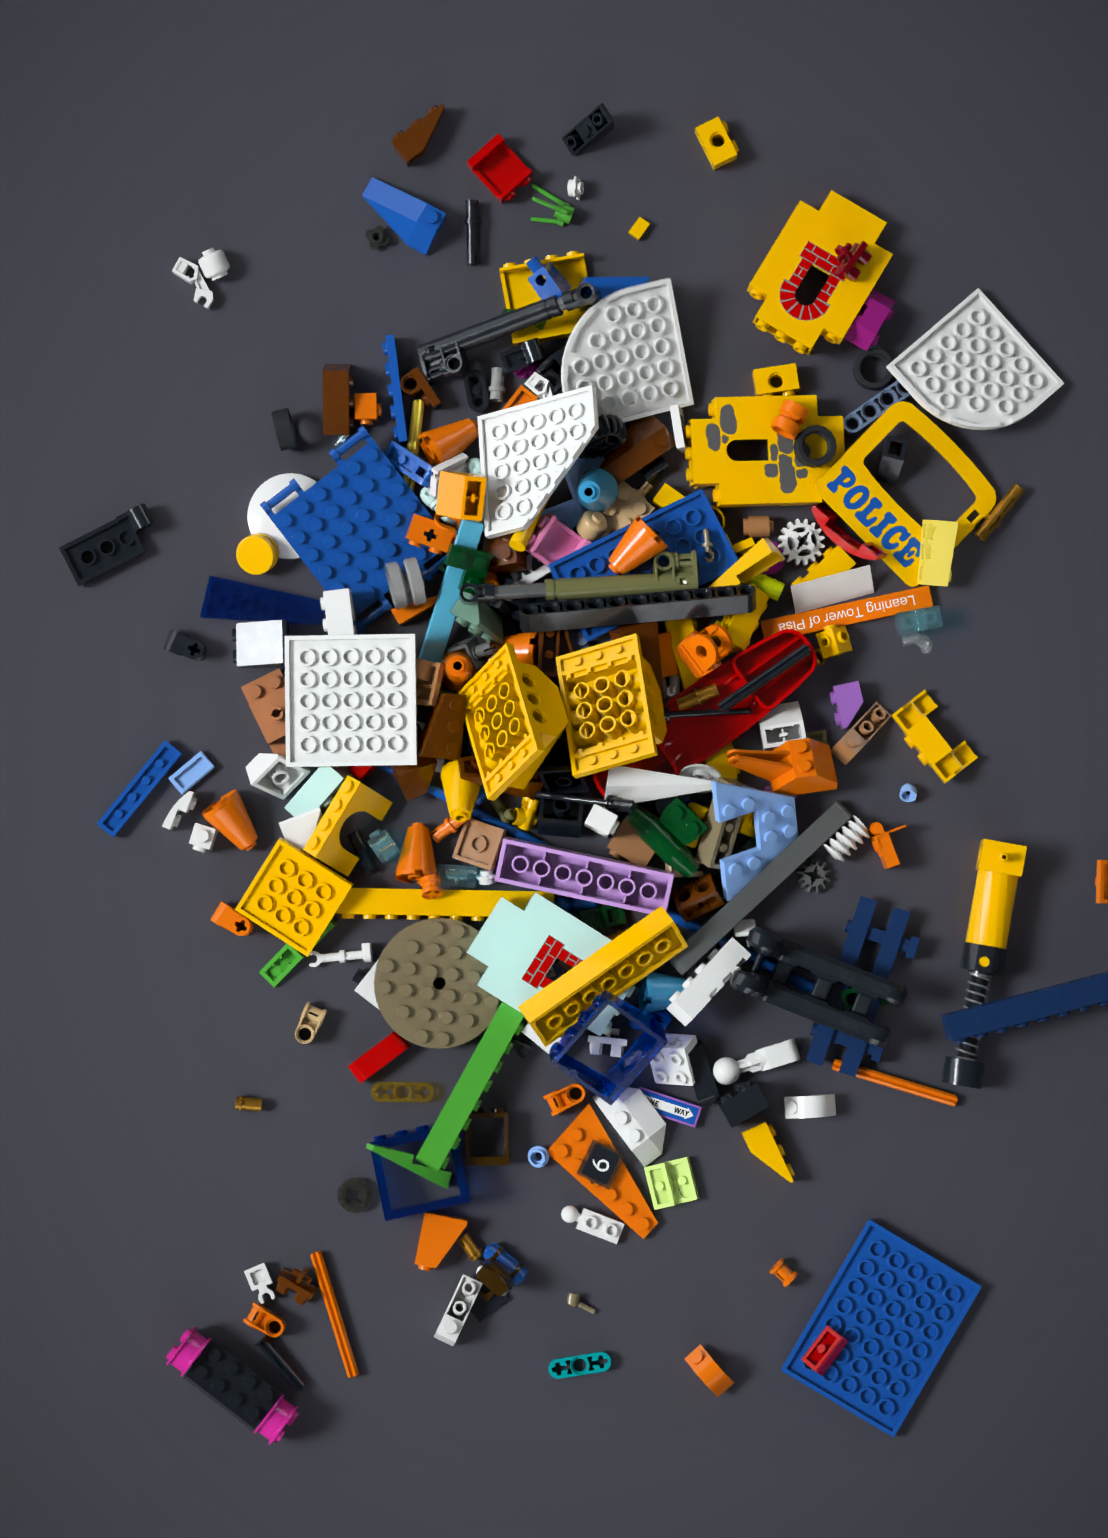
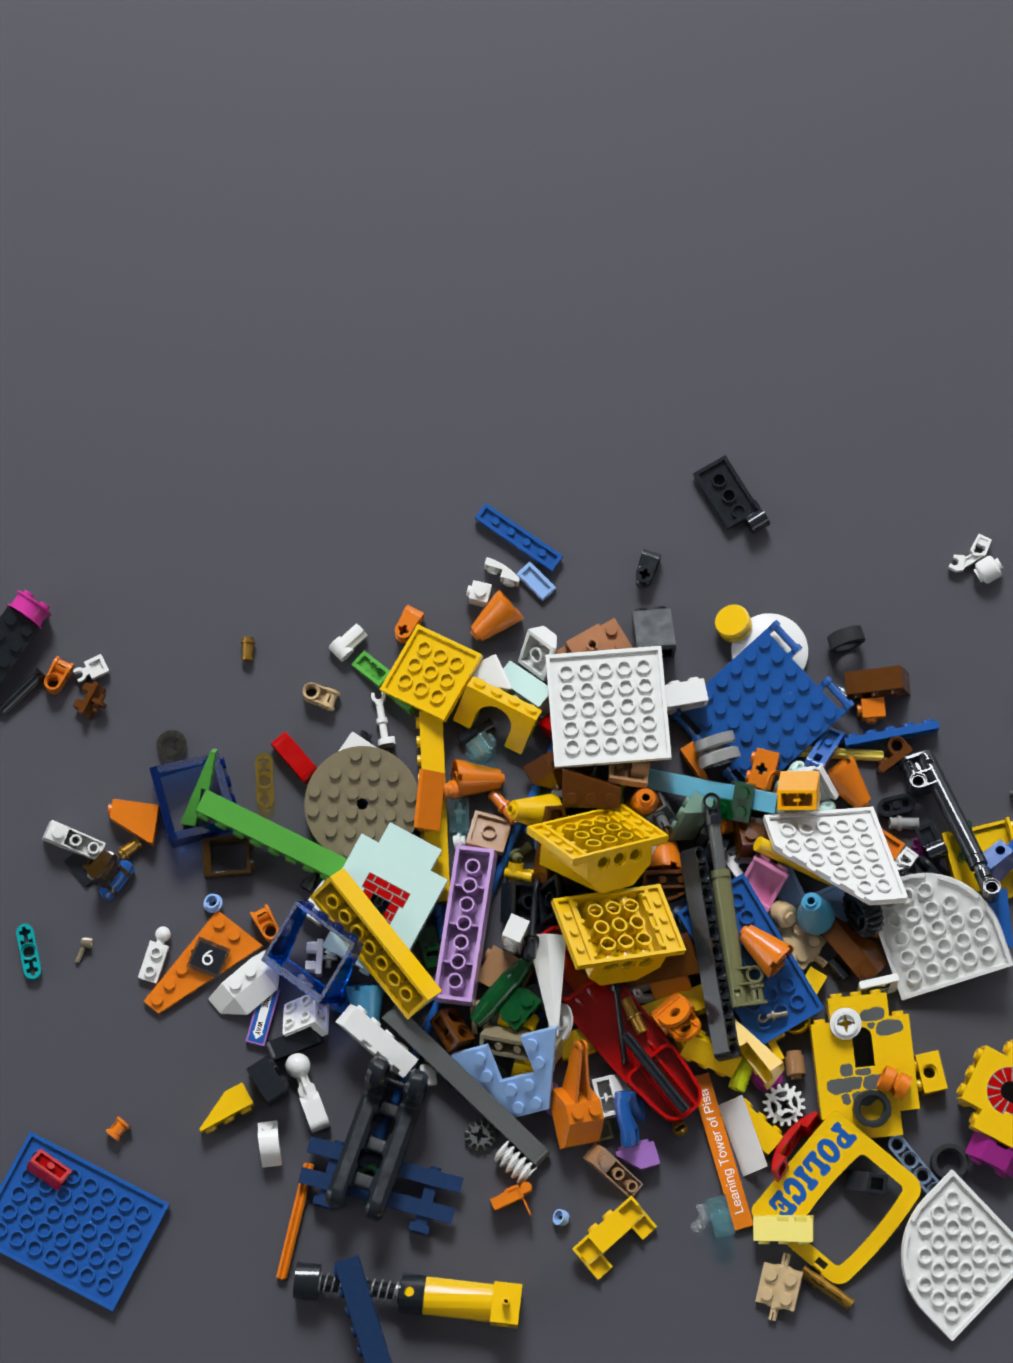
camera: 85 degrees right, 10 degrees down
(247, 602) = (690, 614): clear blue wing -> none
(252, 993) = (344, 645): none -> white piece
(334, 1314) = (66, 735): orange axle -> none
(444, 907) = (429, 801): none -> orange slope
(671, 1183) = (194, 1023): yellowish green slope -> none
(709, 1371) = (26, 1065): orange brick -> none
(728, 459) = (852, 1016): none -> white gear
(793, 713) = (625, 1105): none -> blue piece
(834, 641) = (695, 1139): yellow brick -> none
(996, 562) = (779, 1286): none -> tan plate

